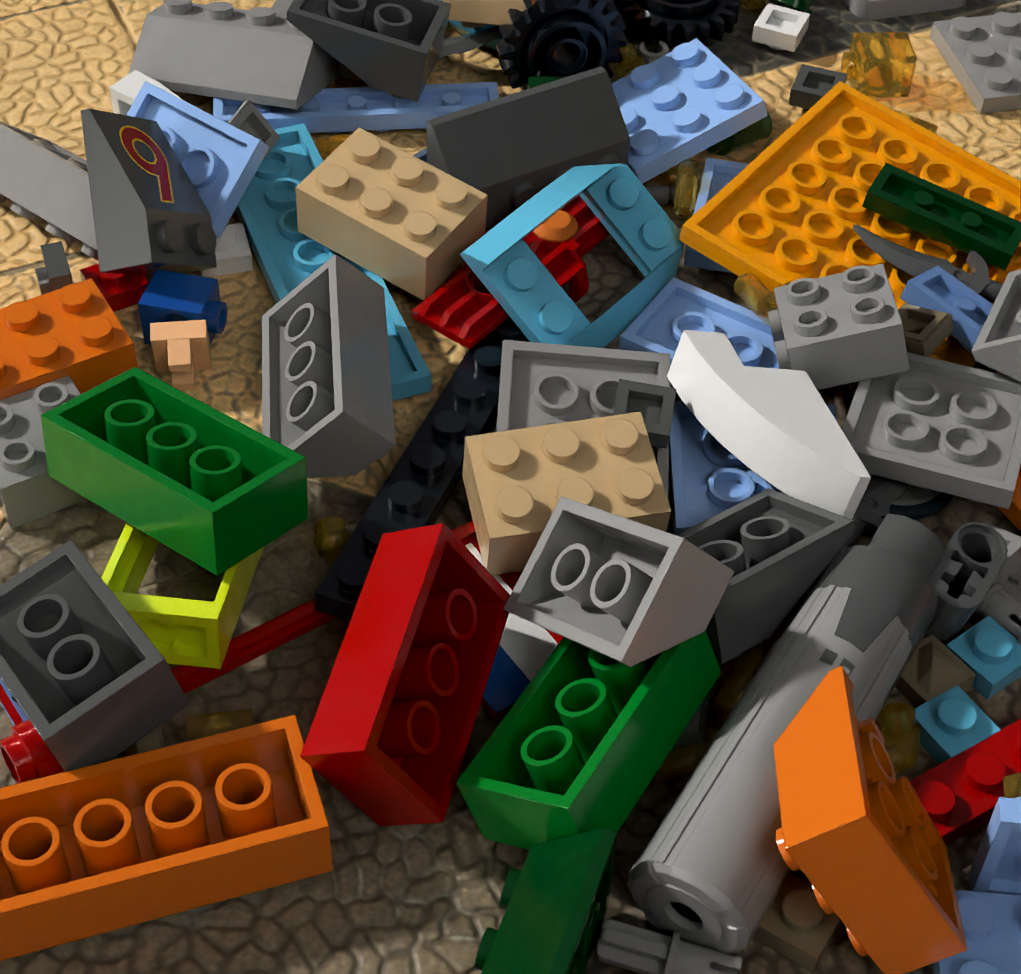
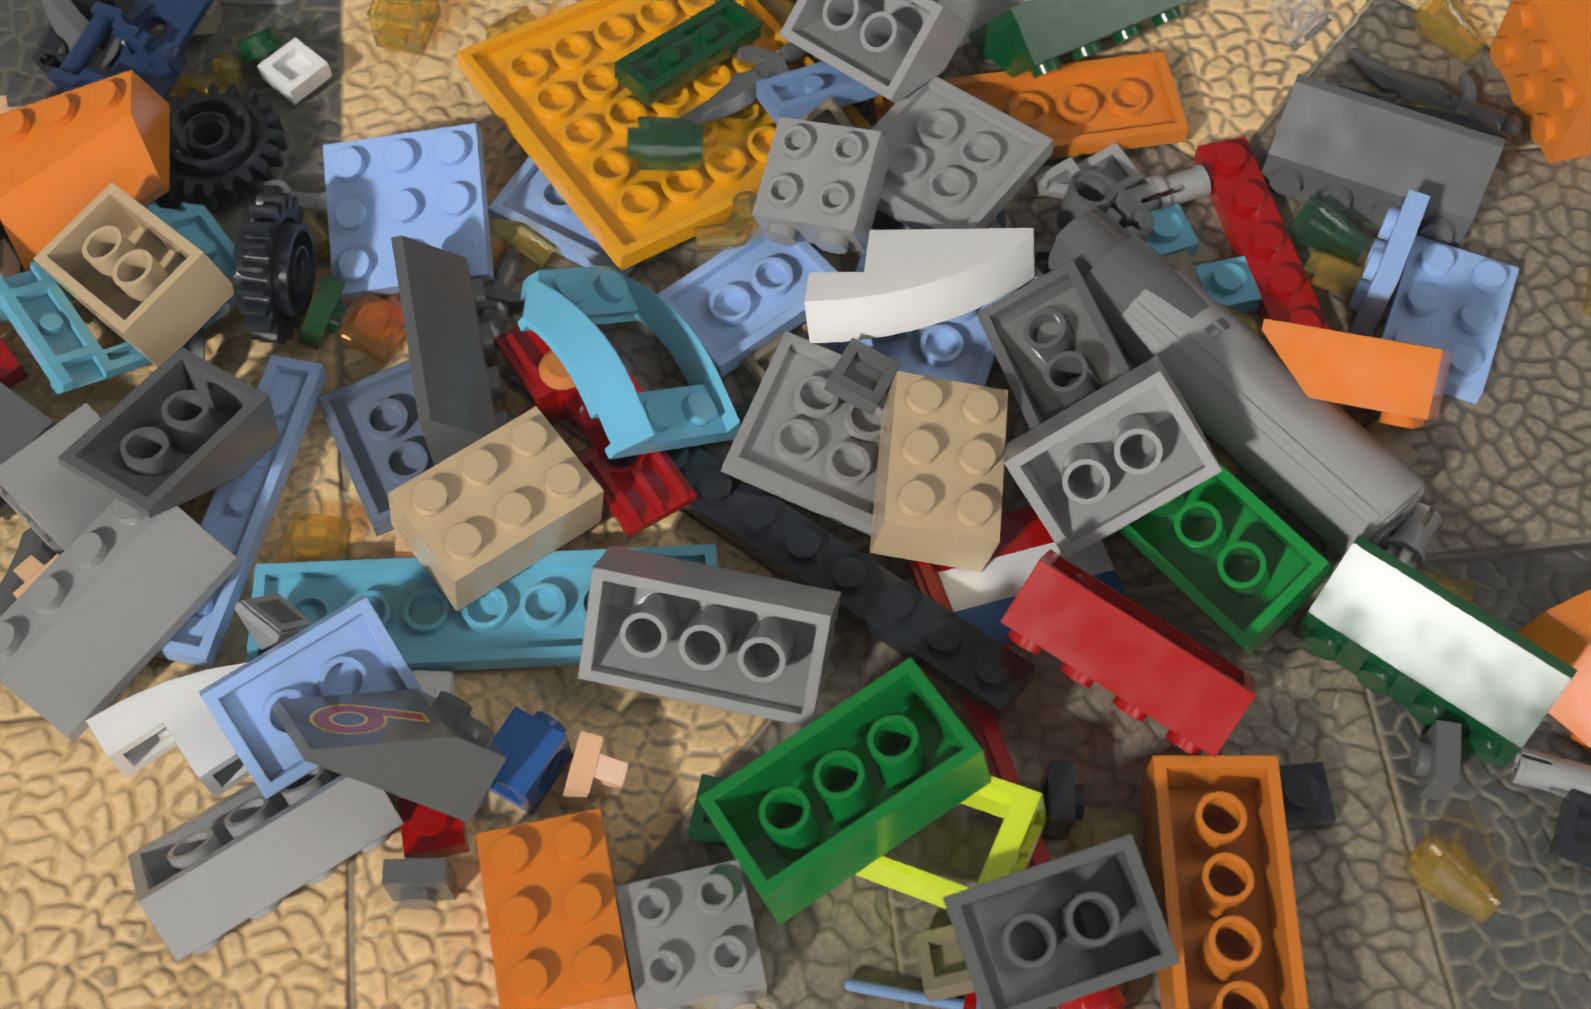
camera: 70 degrees left, 15 degrees up
(249, 681) = (1062, 799): none -> black plate
(323, 908) = (1306, 796): none -> black plate
(812, 85) = (413, 78): dark grey plate -> none
(818, 216) = (665, 143): none -> clear green brick

